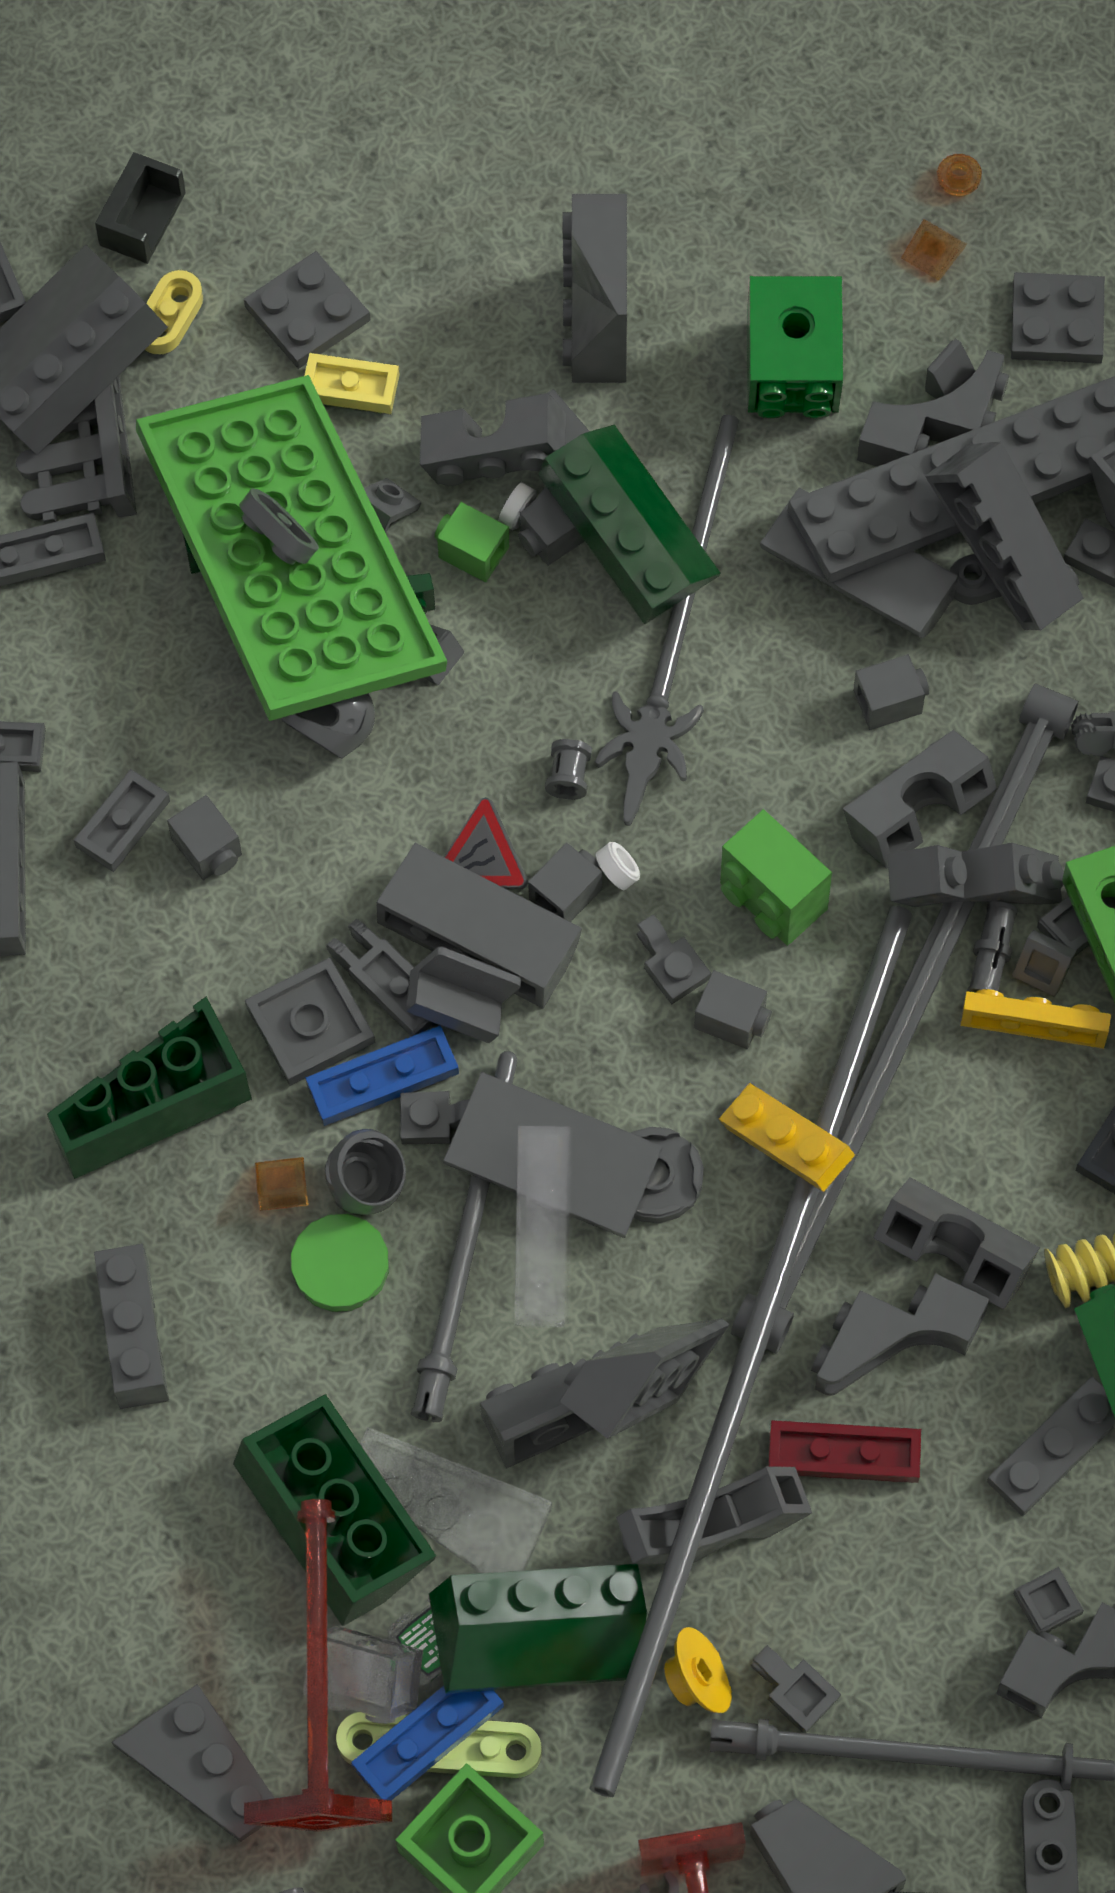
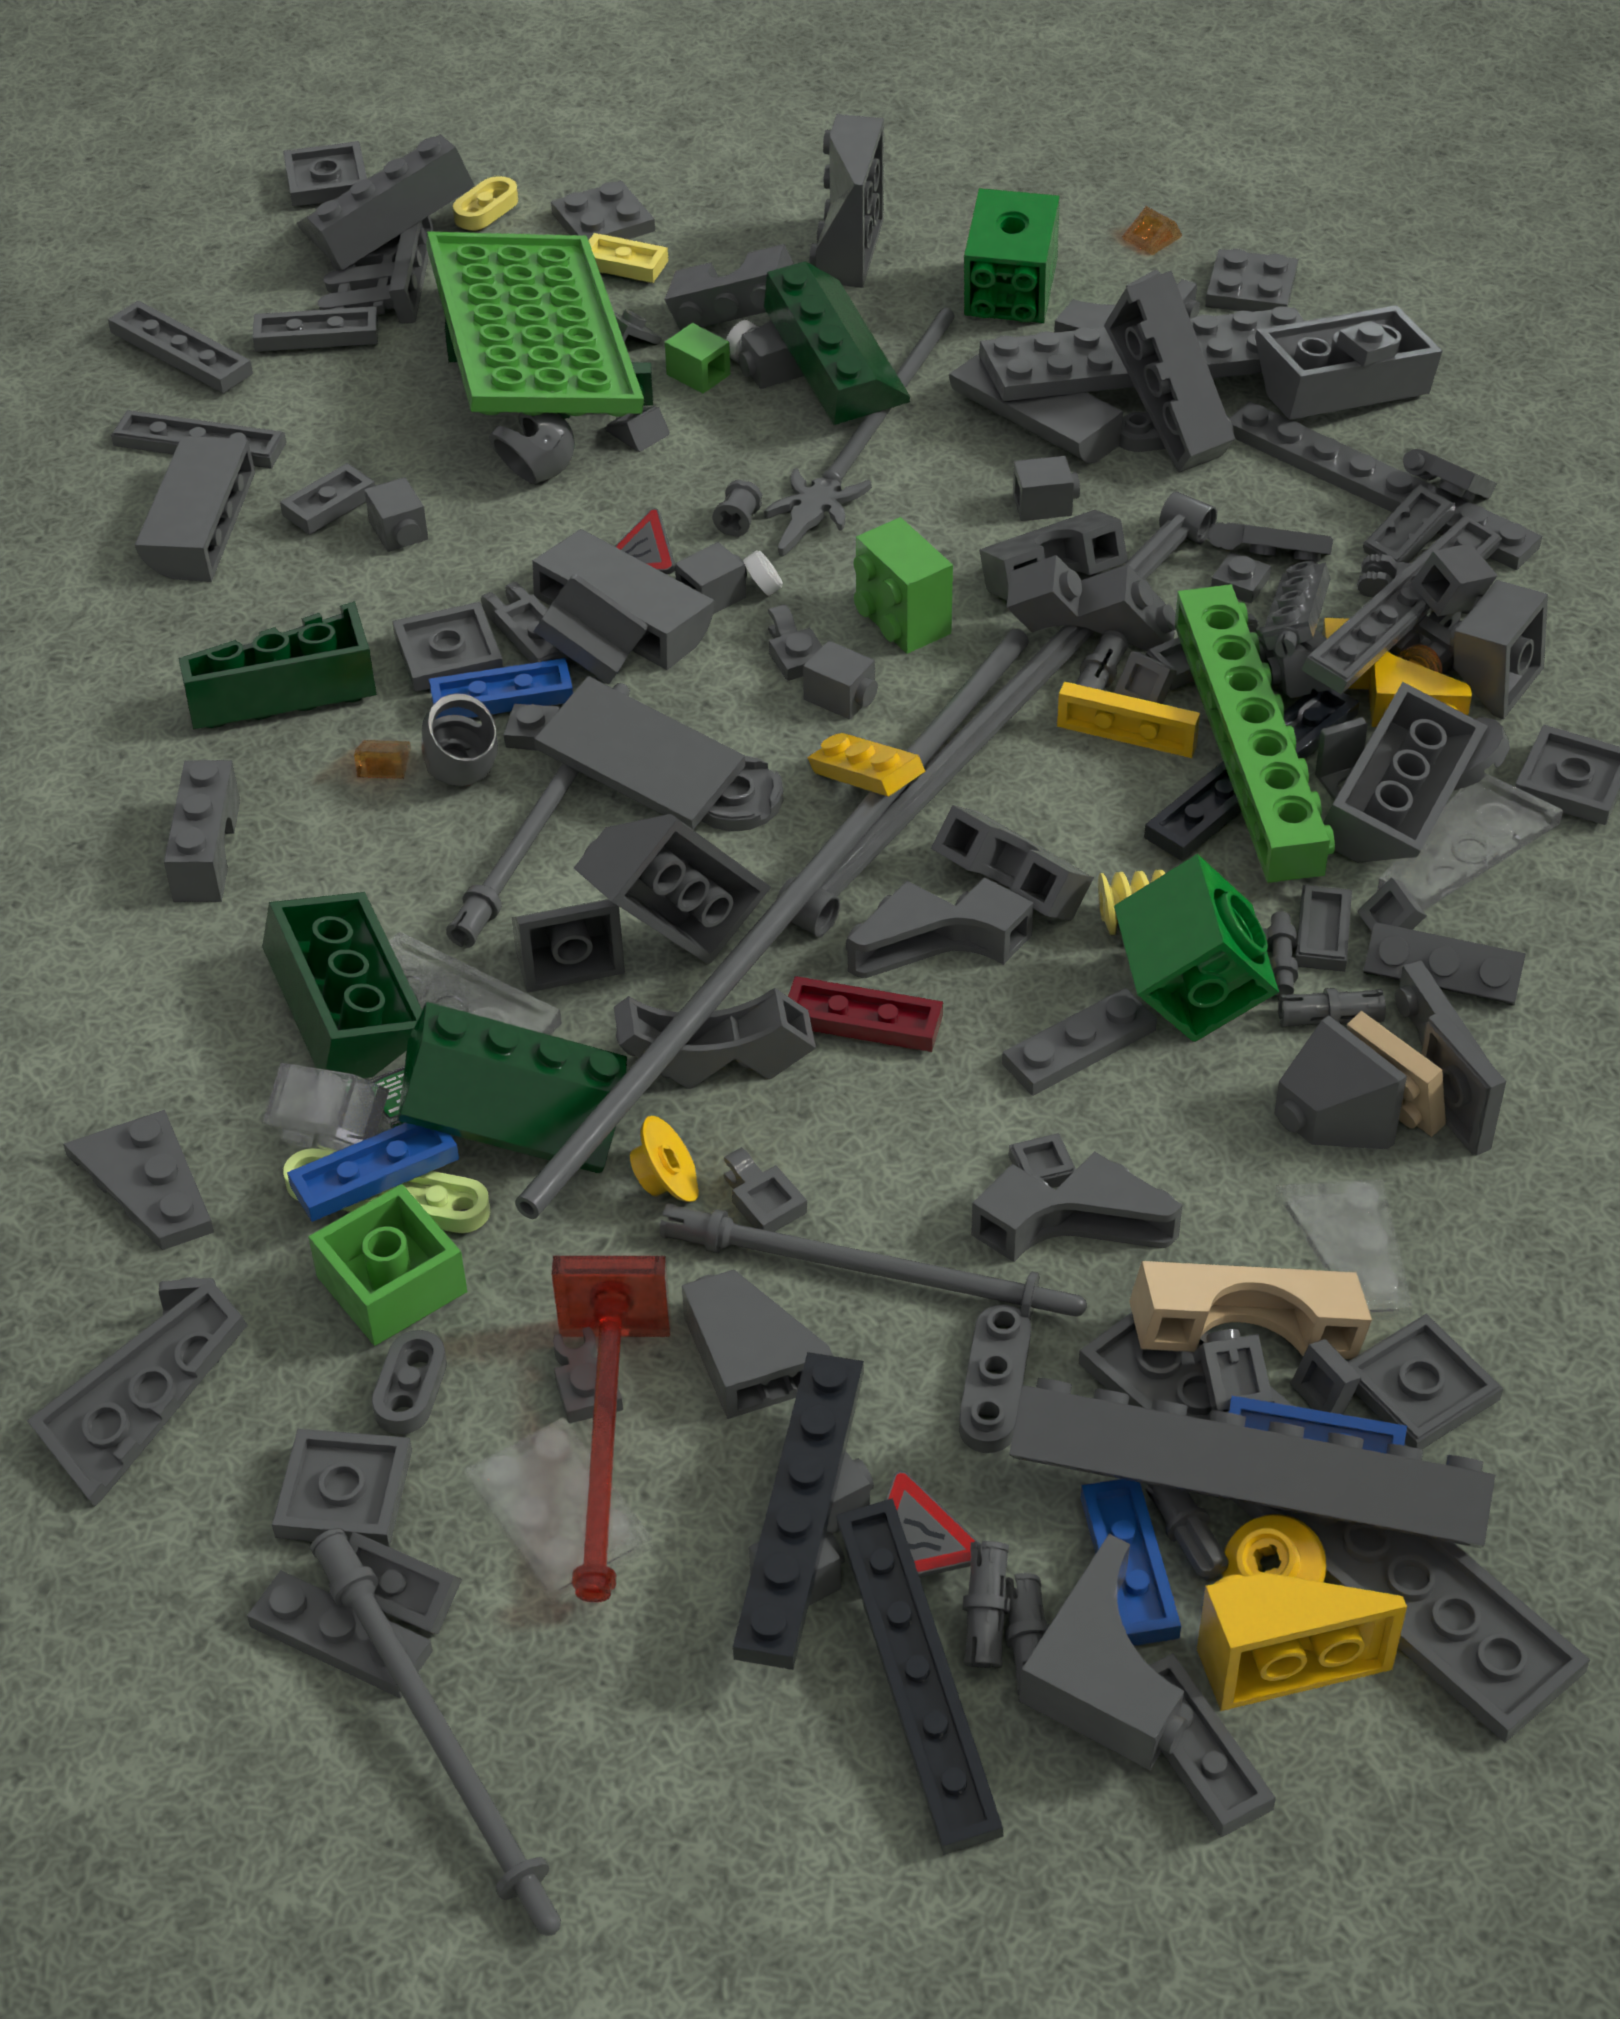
camera: 10 degrees right, 20 degrees down
(140, 207) = (487, 138): pearl dark grey panel -> none
(269, 518) = (511, 286): dark grey plate -> none
(317, 1806) = (232, 1191): clear red tile -> none
(339, 1262) = (417, 818): bright green tile -> none
(542, 1225) = (613, 771): clear brick -> none
(955, 184) = (1184, 191): clear orange plate -> none

